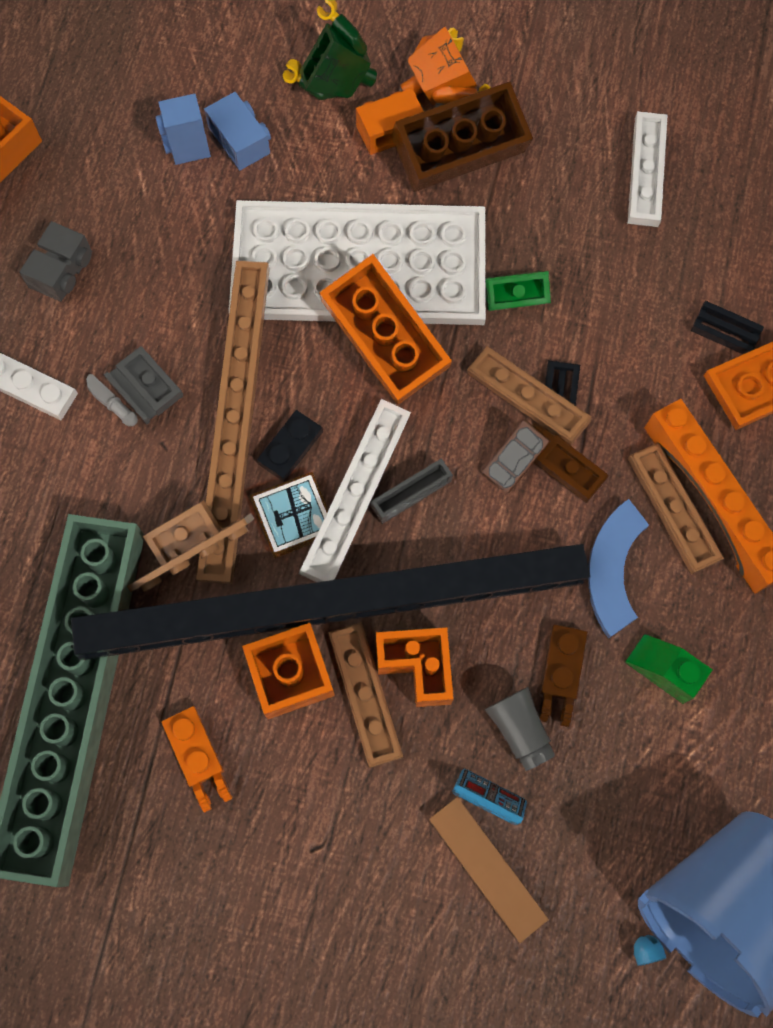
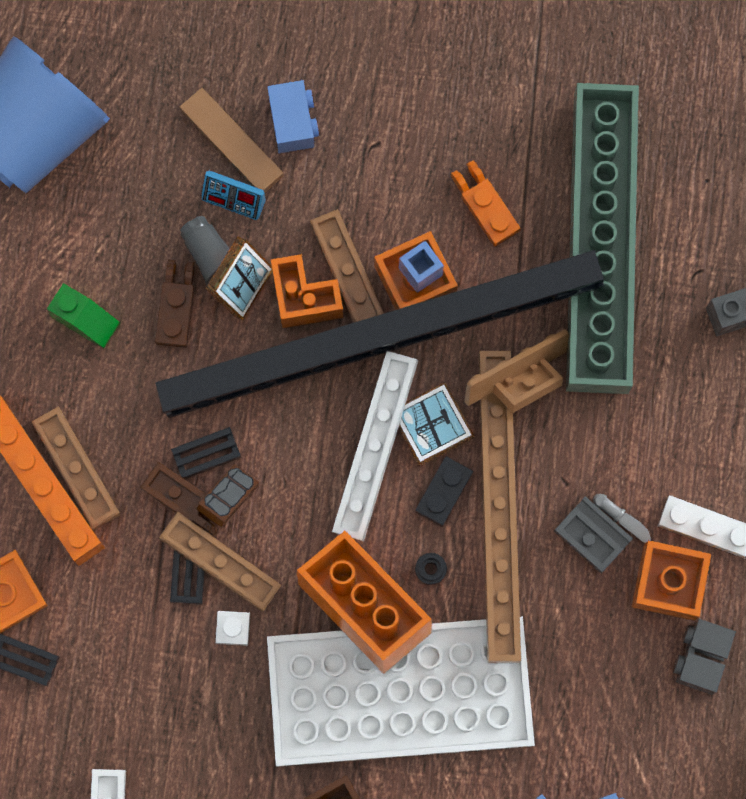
camera: 175 degrees right, 5 degrees up
(72, 327) = (671, 580): none -> orange brick
(280, 659) = (421, 266): none -> medium blue brick
(310, 363) = (430, 558): none -> black plate
(411, 491) = (324, 454): dark grey piece -> none
(413, 891) = (291, 116): none -> medium blue brick
(490, 686) = (239, 278): none -> tile
(517, 290) = (236, 682): green slope -> none
(518, 337) = (232, 628): none -> white plate
(562, 501) = (177, 451): none -> black tile
(607, 568) = (137, 407): medium blue tile -> none
(648, 950) = (97, 91): dark azure hinge -> none

